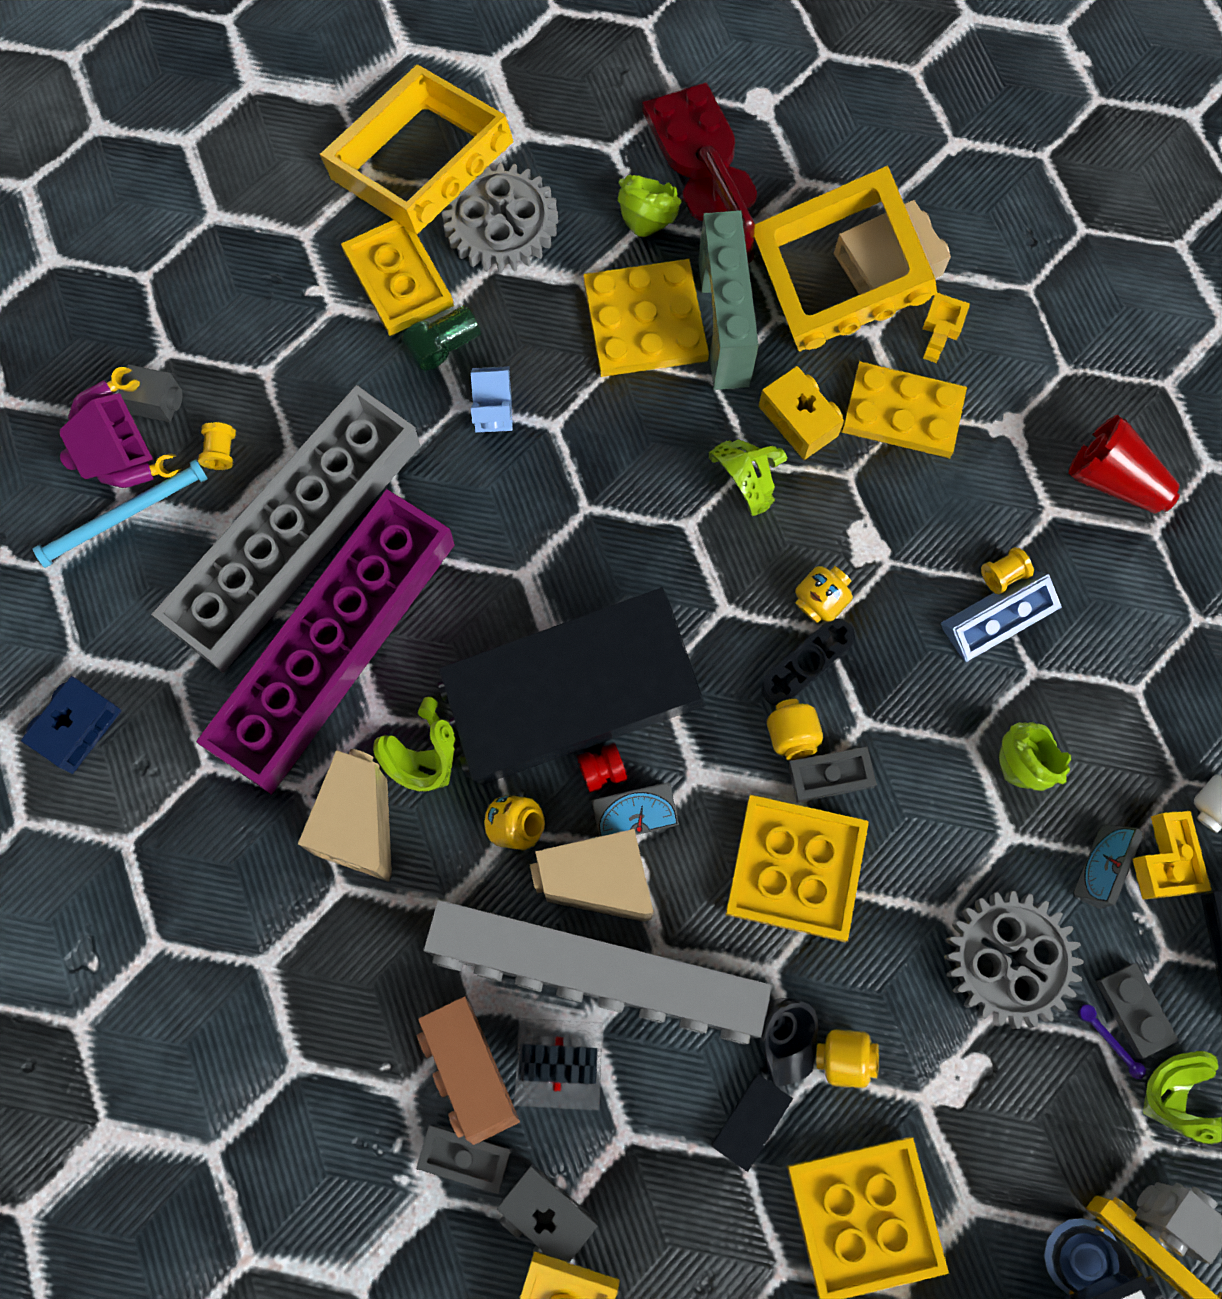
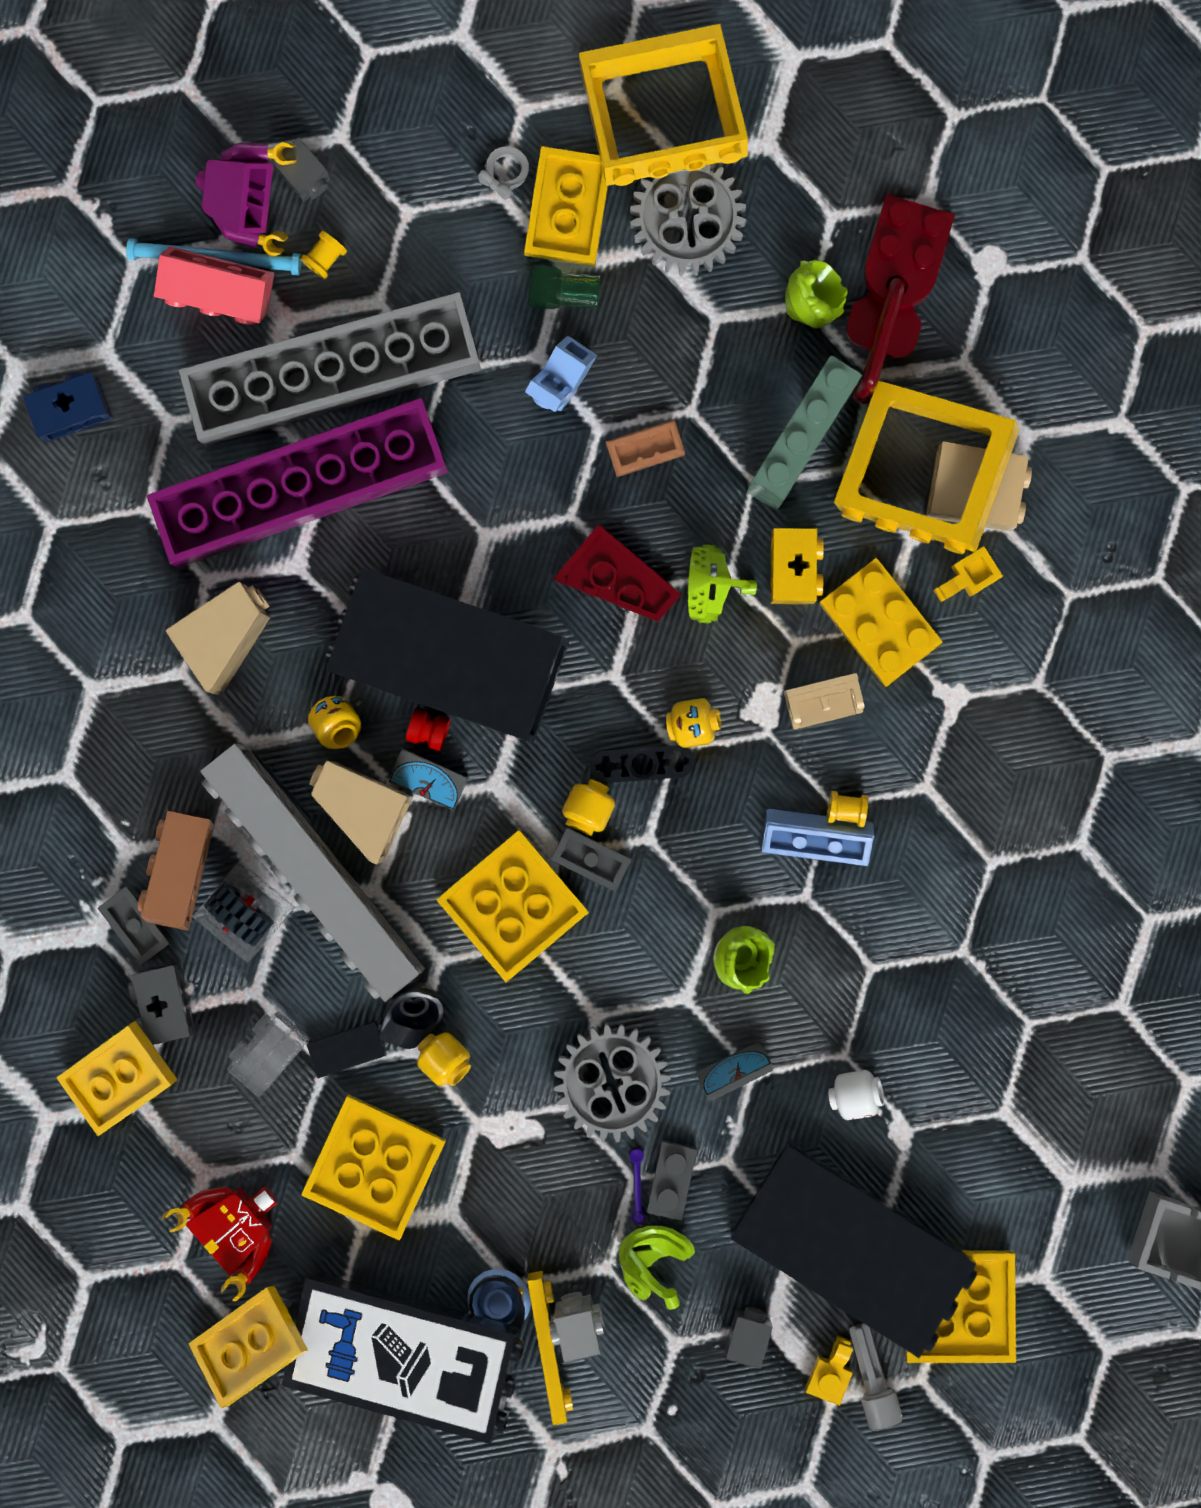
camera: 40 degrees right, 15 degrees up
(136, 533) = (213, 285): none -> coral brick
(334, 298) = (504, 189): none -> light grey piece
(404, 764) = (288, 617): lime helmet -> none
(605, 409) = (645, 448): none -> nougat plate
(645, 317) = (739, 390): yellow plate -> none
(664, 523) = (617, 575): none -> dark red wing
(683, 1185) = (268, 1053): none -> clear brick
(914, 499) = (824, 701): none -> tan hinge
(1125, 468) = (1002, 800): red cone -> none
(1179, 865) = (787, 1110): yellow plate -> none

